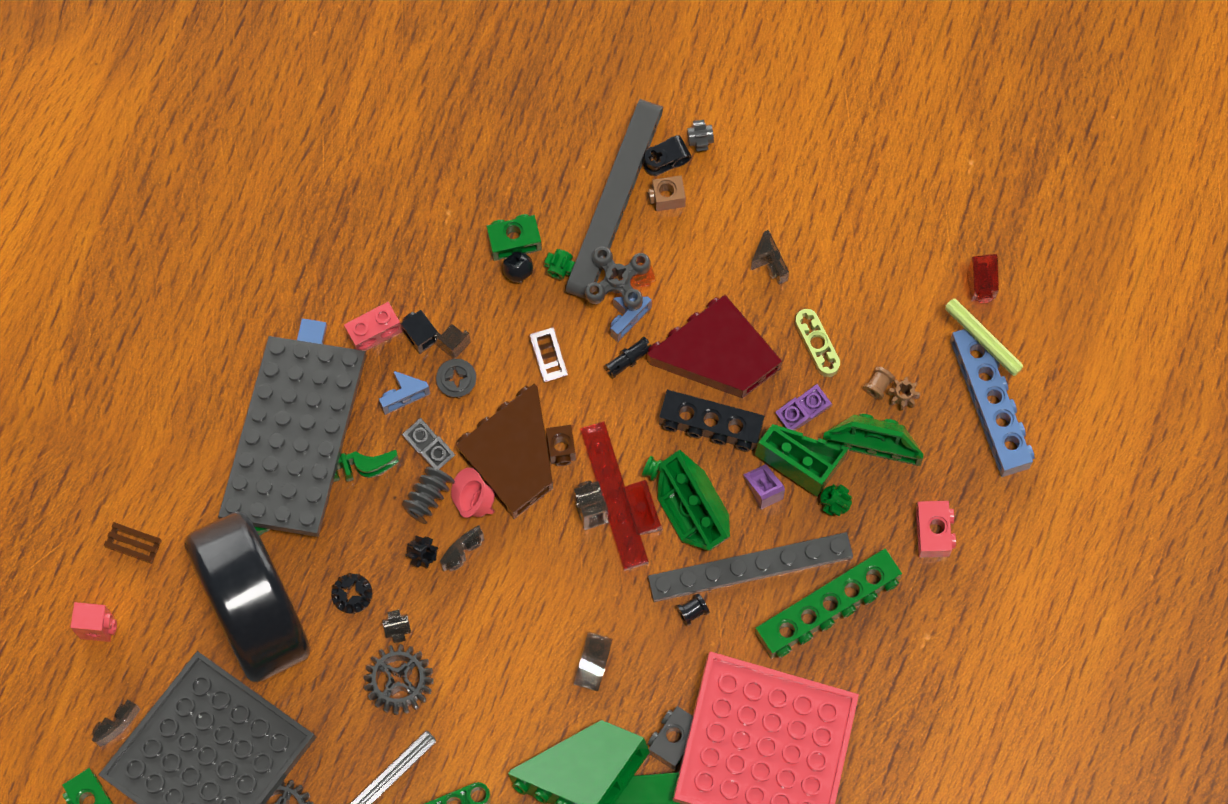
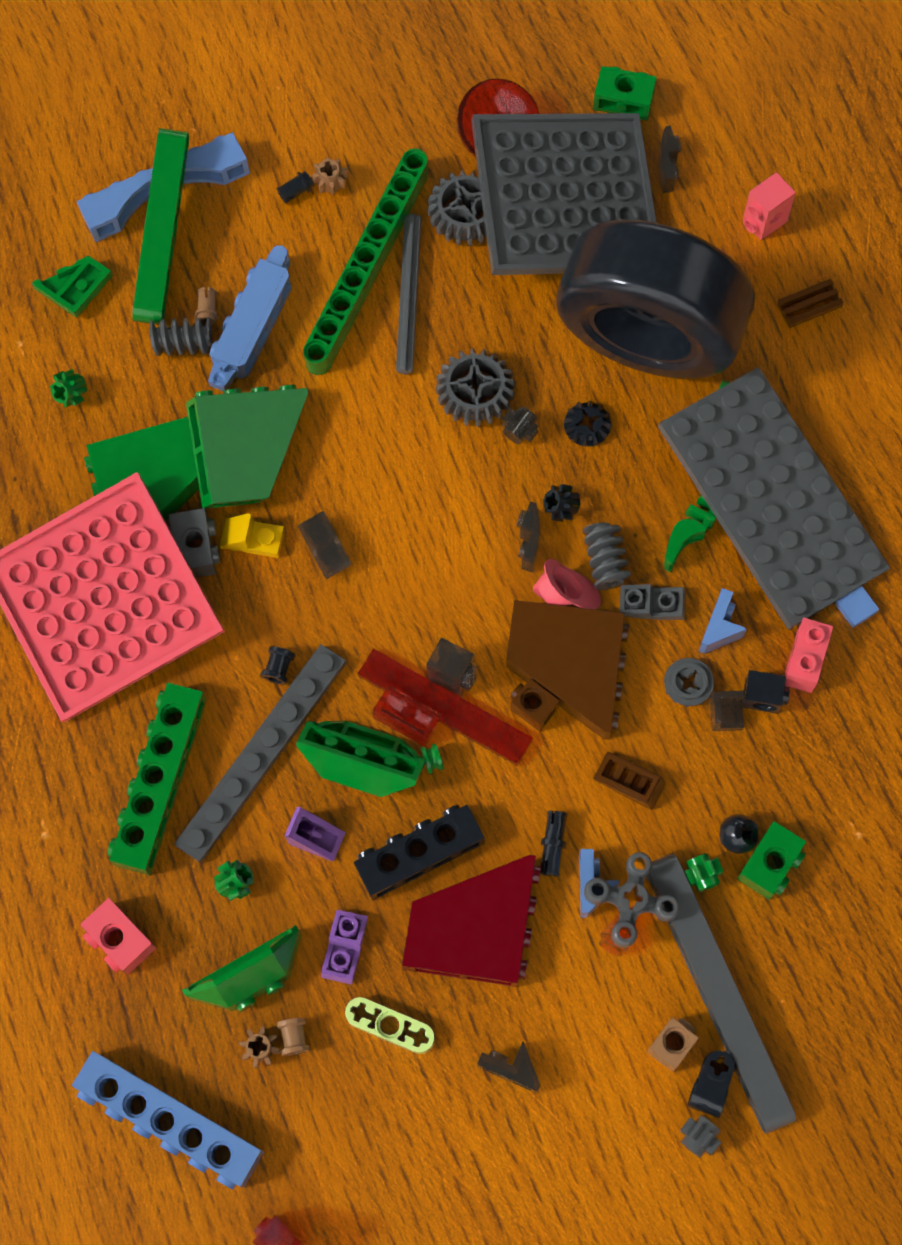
camera: 140 degrees right, 0 degrees up
(633, 711) = (252, 537): none -> yellow slope
(801, 458) = (298, 889): green wedge -> none
(984, 337) = (223, 1171): yellowish green axle -> none

